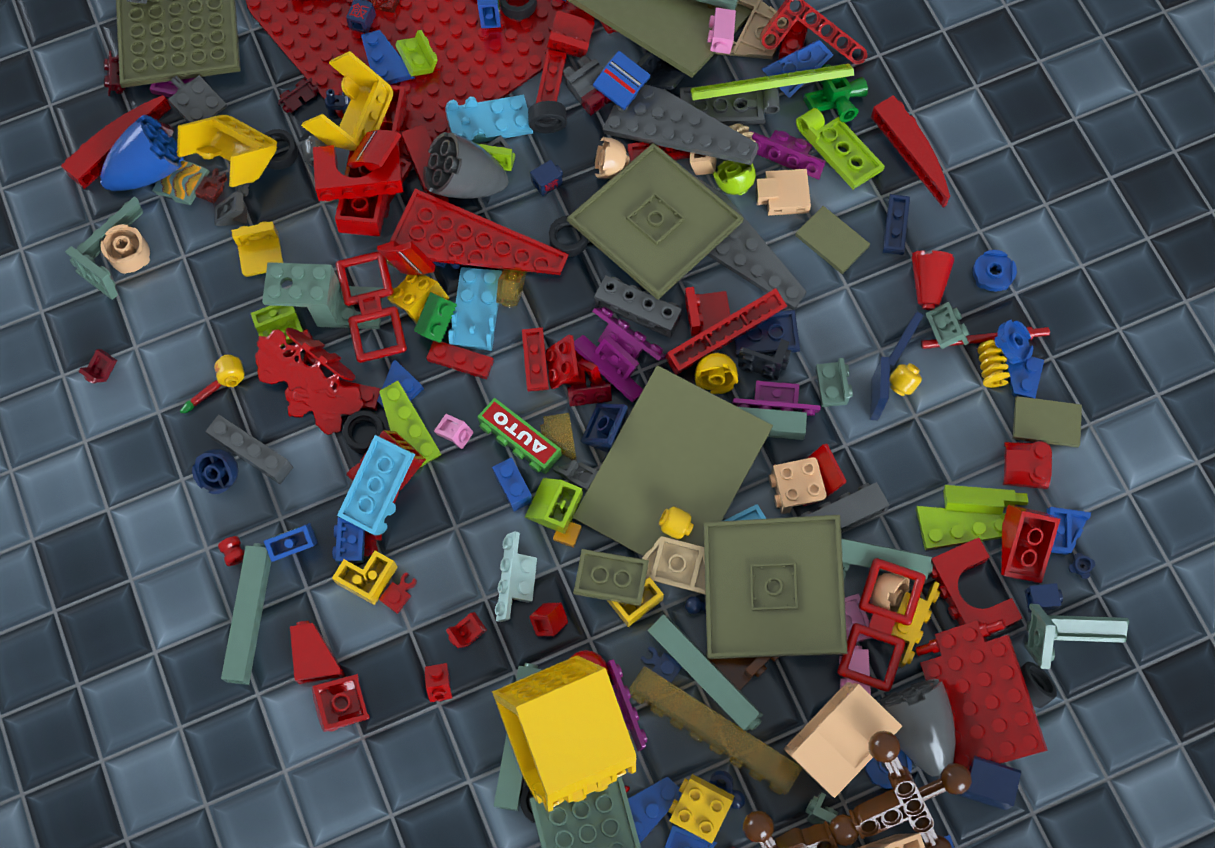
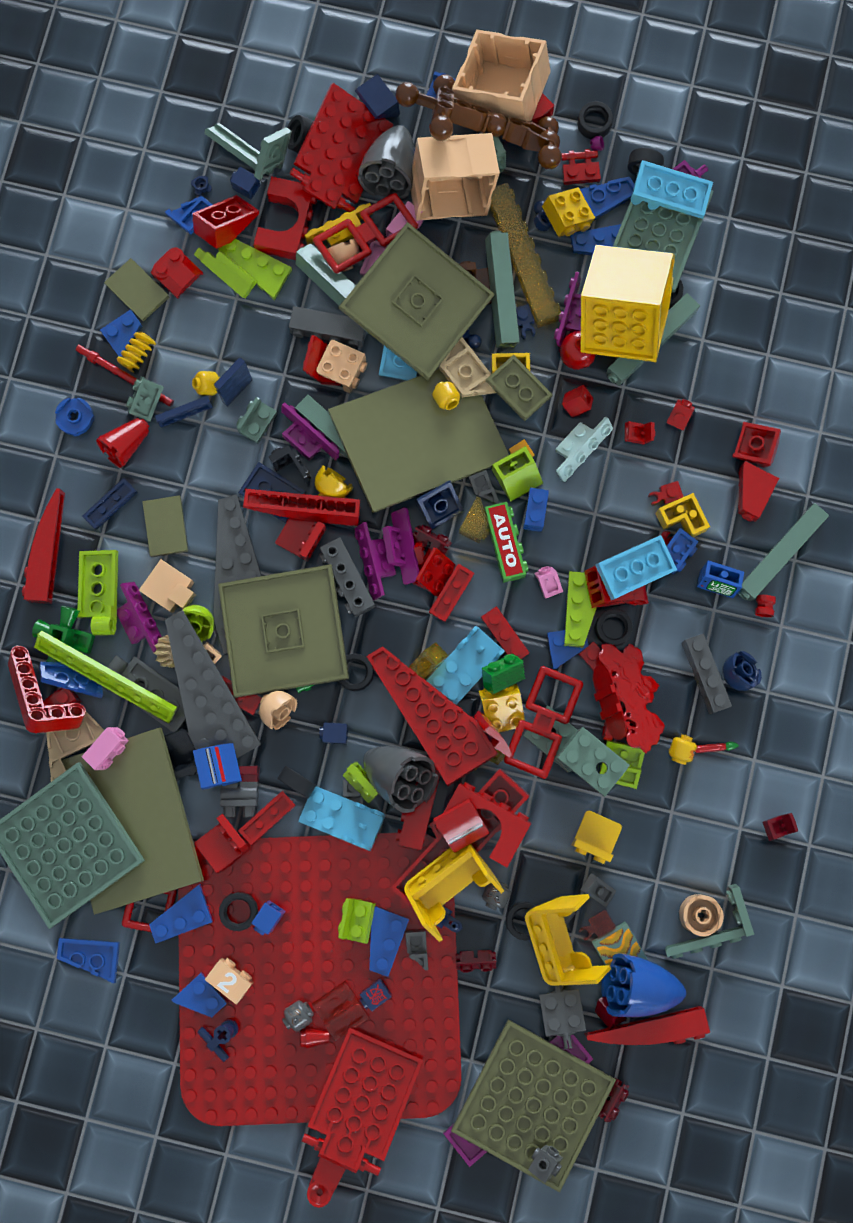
camera: 145 degrees left, 10 degrees up
(1014, 341) = (111, 351): blue plate -> none

